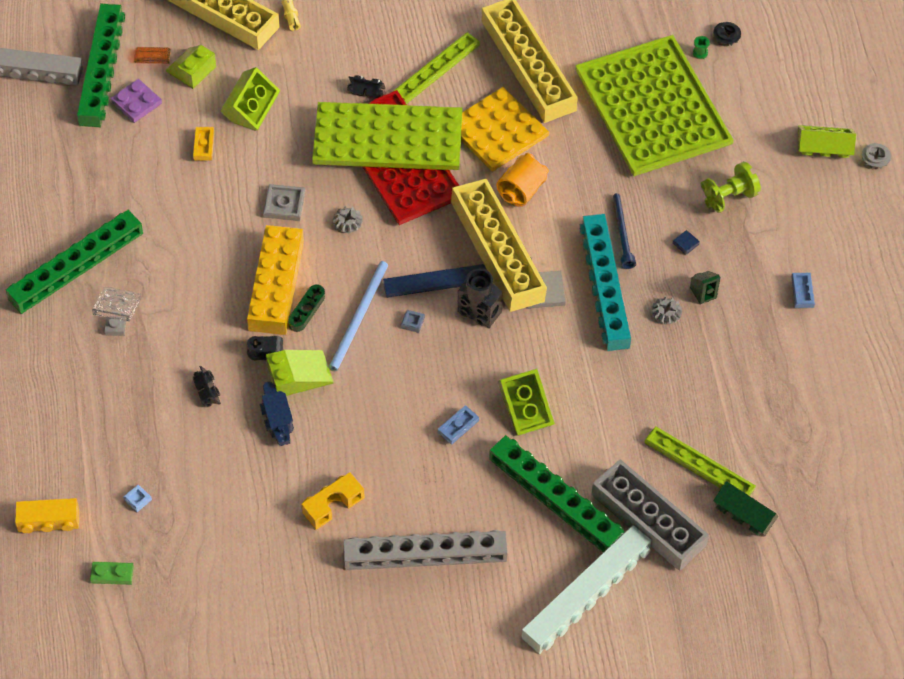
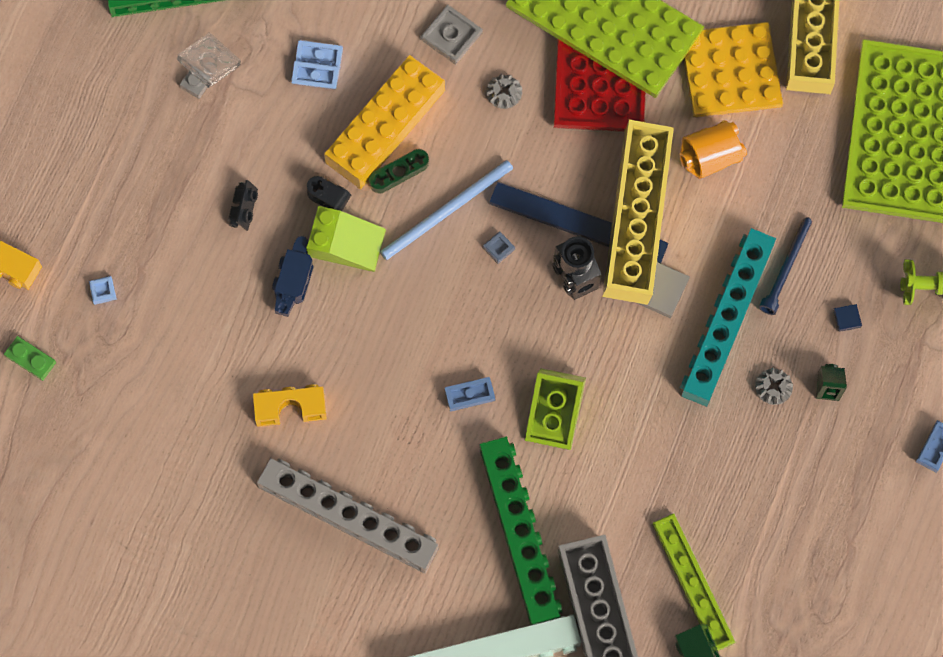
camera: 30 degrees right, 15 degrees up
(199, 268) = (317, 64): none -> light blue slope

